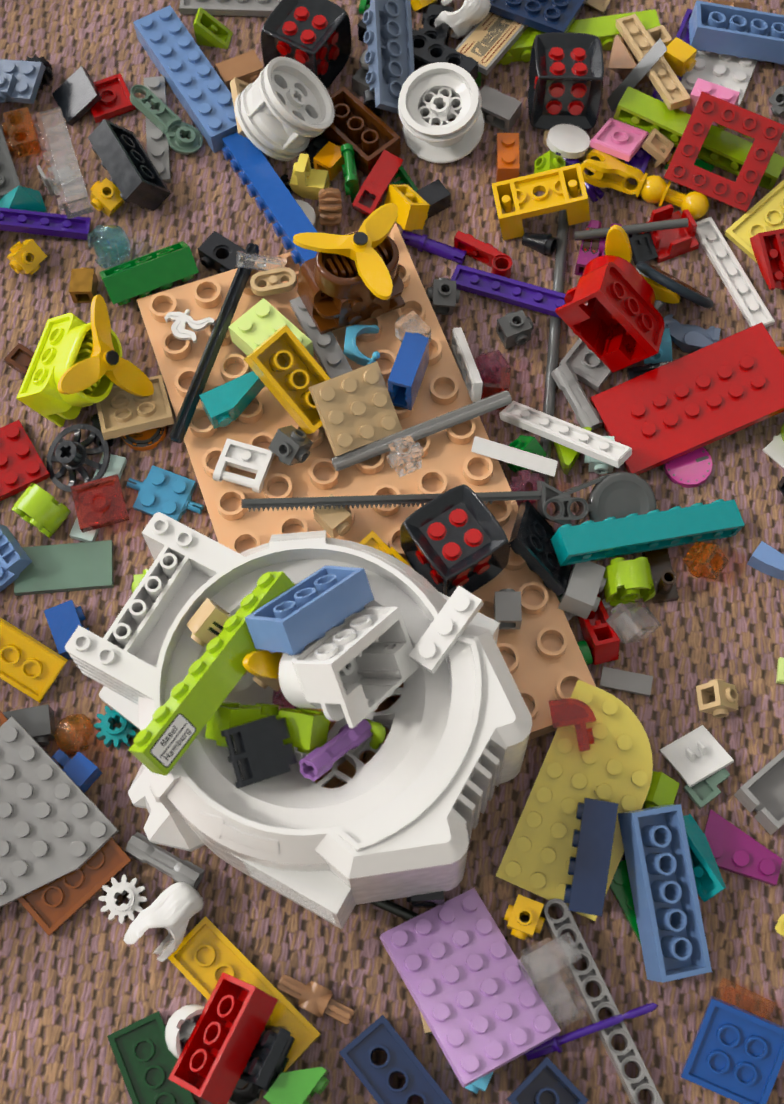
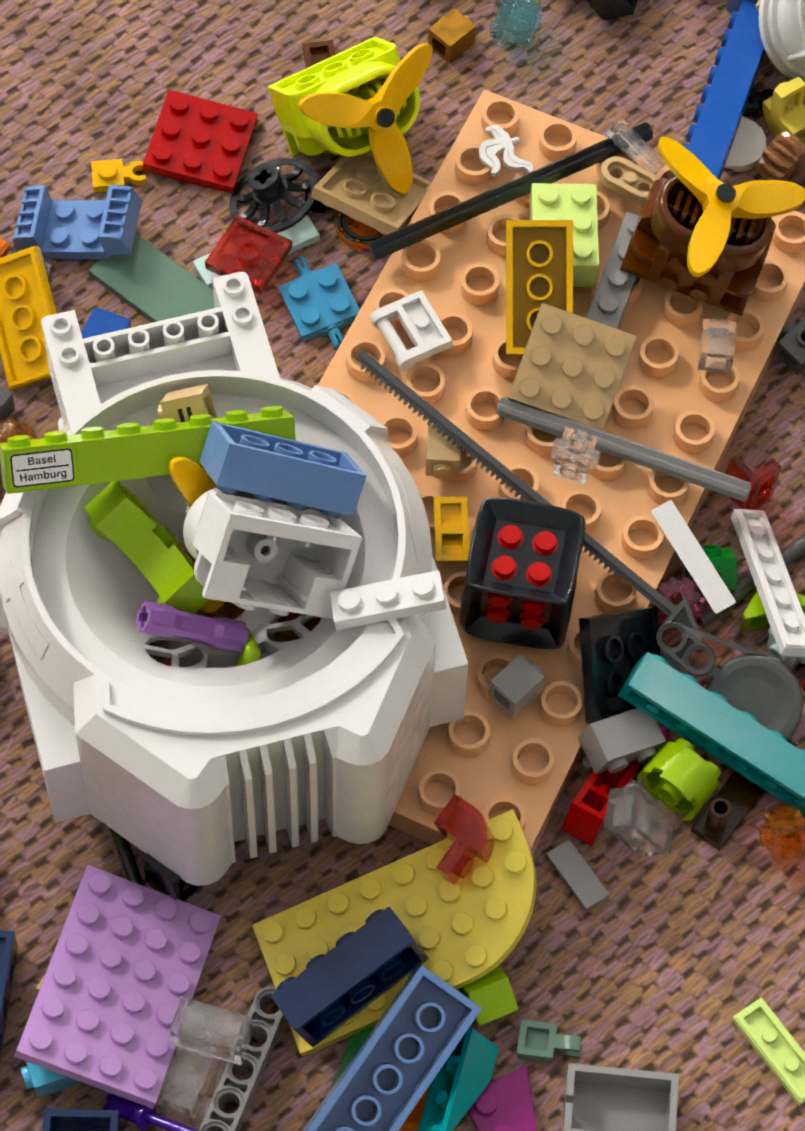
camera: 40 degrees right, 5 degrees down
(41, 510) = (187, 213): lime brick -> none
(149, 272) = (524, 74): green brick -> none
(215, 249) = (616, 105): black brick -> none
(230, 399) = (463, 257): teal slope -> none
(259, 750) = (118, 558): black plate -> none
(290, 445) = (474, 348): dark grey brick -> none
(350, 347) = (650, 296): medium azure helmet -> none
(408, 370) = (666, 376): blue brick -> none
(466, 364) = (746, 428): white tile -> none
(490, 365) = (780, 450): clear pink brick -> none
(529, 908) = (235, 982): yellow brick -> none
(585, 652) = (561, 807): green tile -> none
(696, 756) = (567, 1005): white piece -> none
(717, 698) = (647, 970): tan brick -> none

